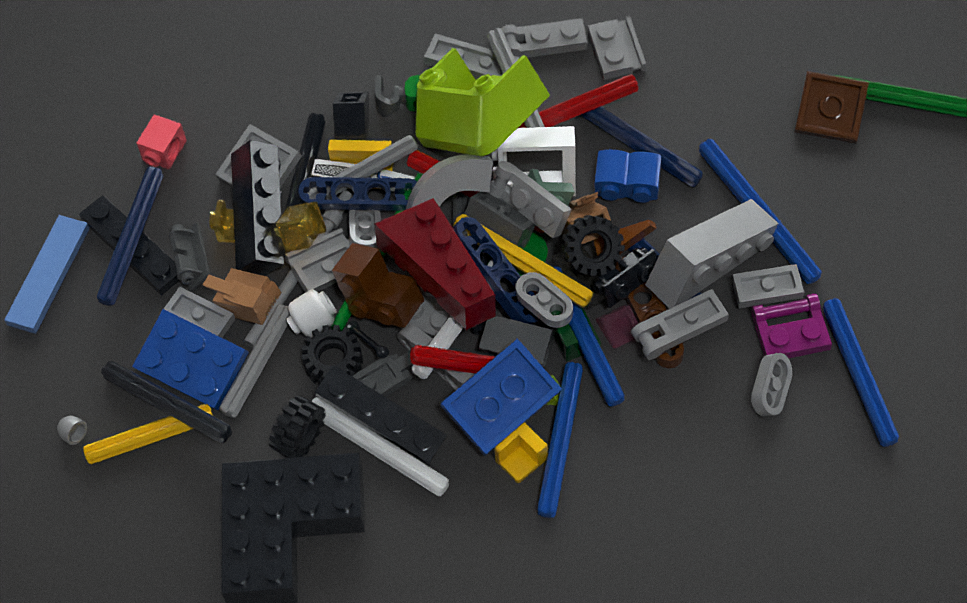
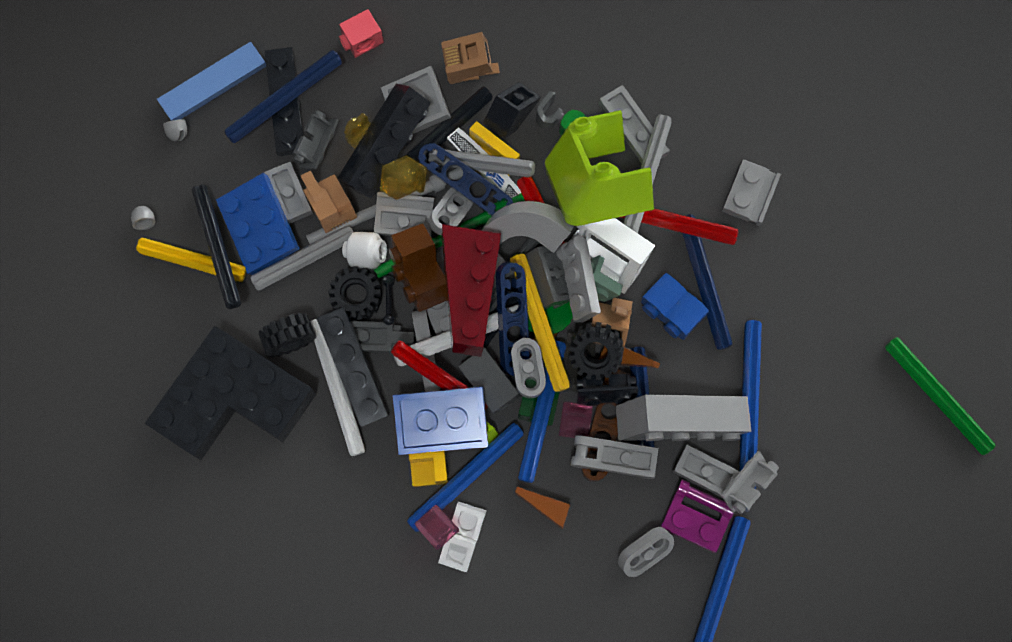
camera: 30 degrees right, 15 degrees up
(44, 333) = (176, 129): none -> light grey hinge
(278, 99) = (468, 58): none -> medium nougat piece
(546, 38) = (703, 146): light grey plate -> none
(570, 494) = (436, 527): none -> clear pink slope
(599, 490) = (460, 548): none -> white slope
(657, 410) = (550, 508): none -> dark orange piece
(813, 274) = (740, 492): none -> light grey hinge
(831, 107) = (873, 362): reddish brown plate -> none

